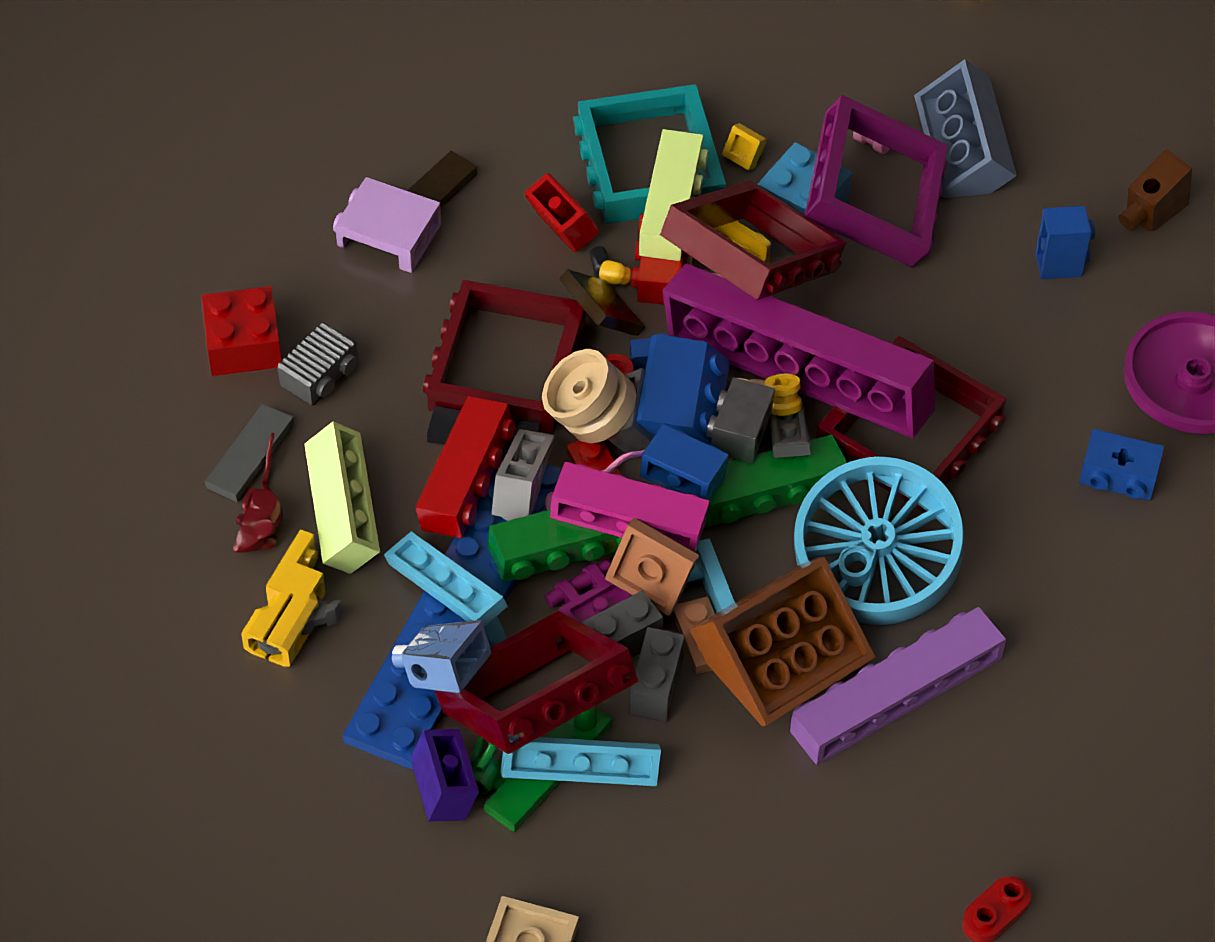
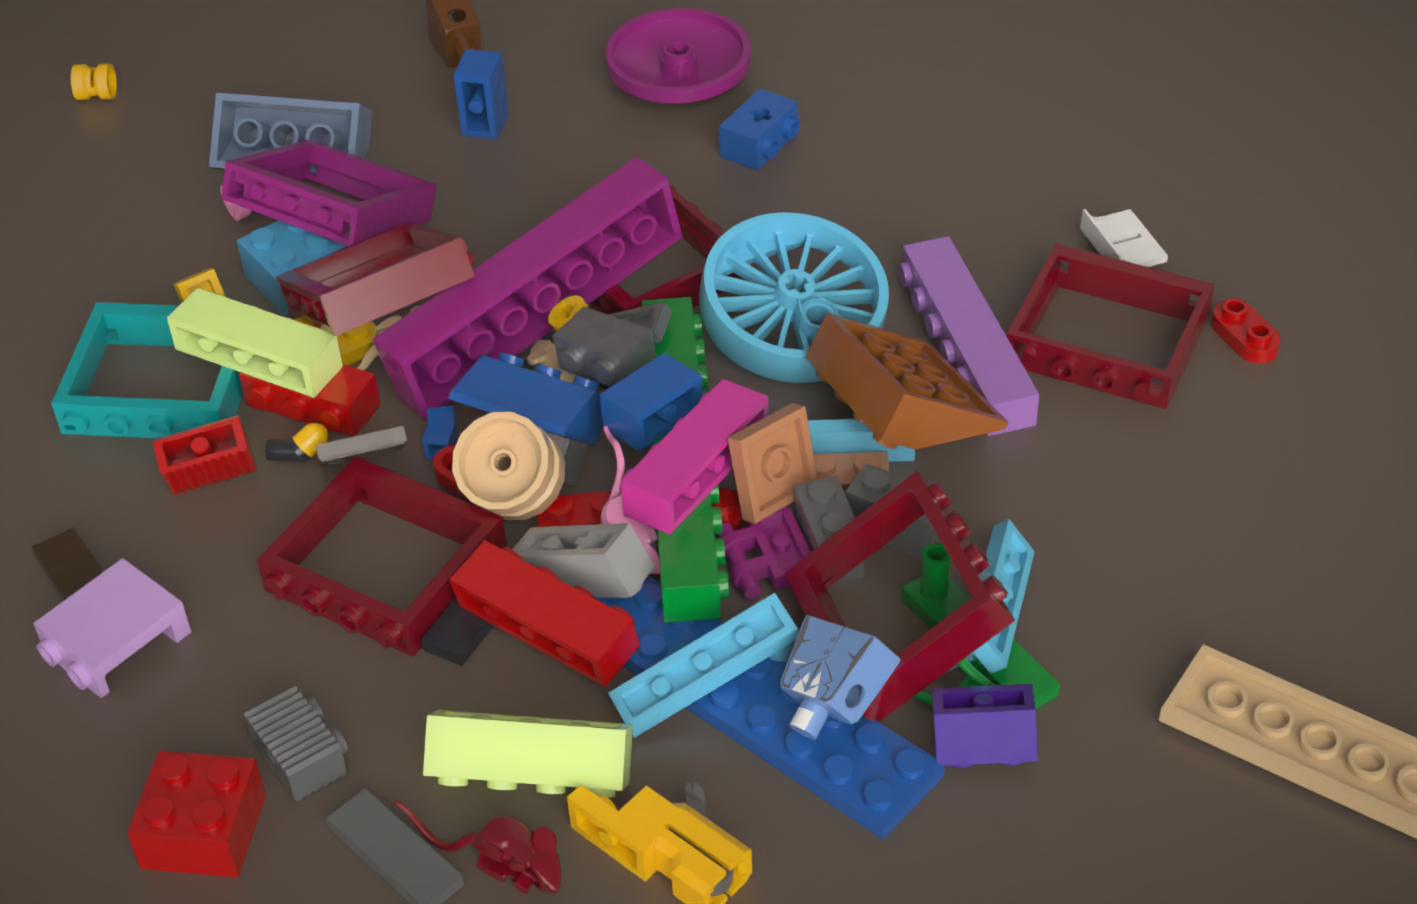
camera: 70 degrees left, 10 degrees down
(955, 732) = (1120, 283): none -> dark red window
(1094, 775) = (1122, 238): none -> white piece

